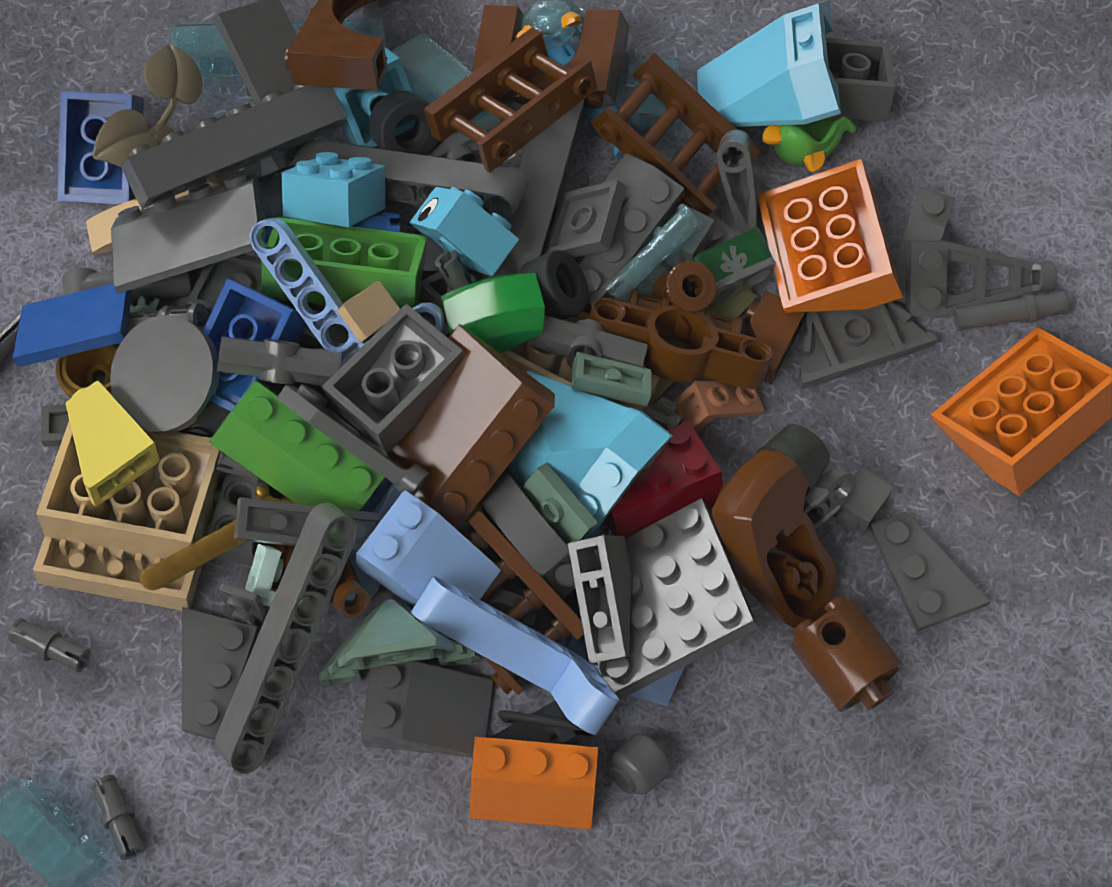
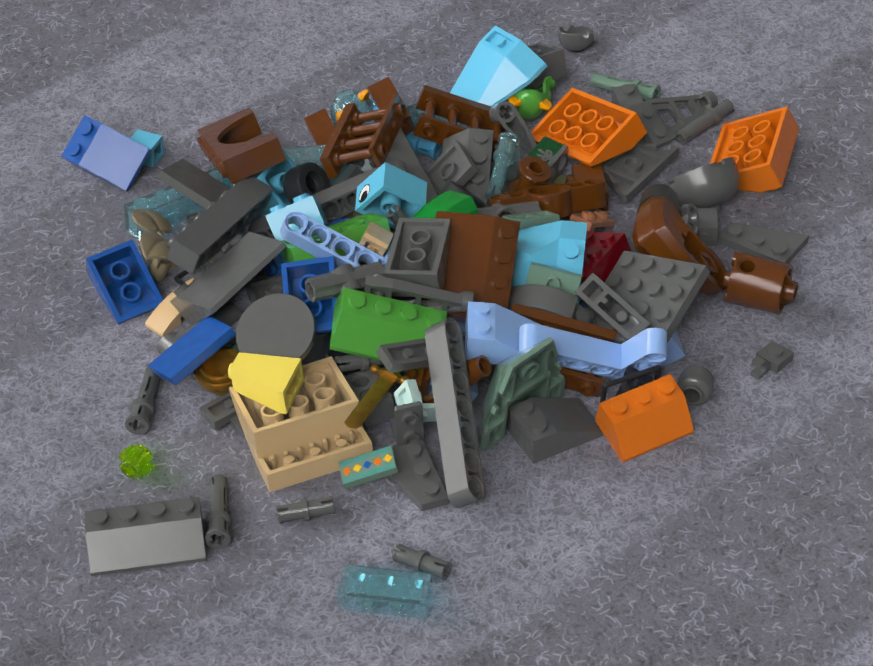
camera: 30 degrees left, 25 degrees down
(162, 629) = (368, 467): none -> sand green tile
(779, 776) = (771, 357): none -> dark grey plate
(909, 435) = (708, 184): none -> dark grey cylinder
(955, 54) = (575, 38): none -> dark grey hair
(966, 195) = (607, 82): none -> sand green pin

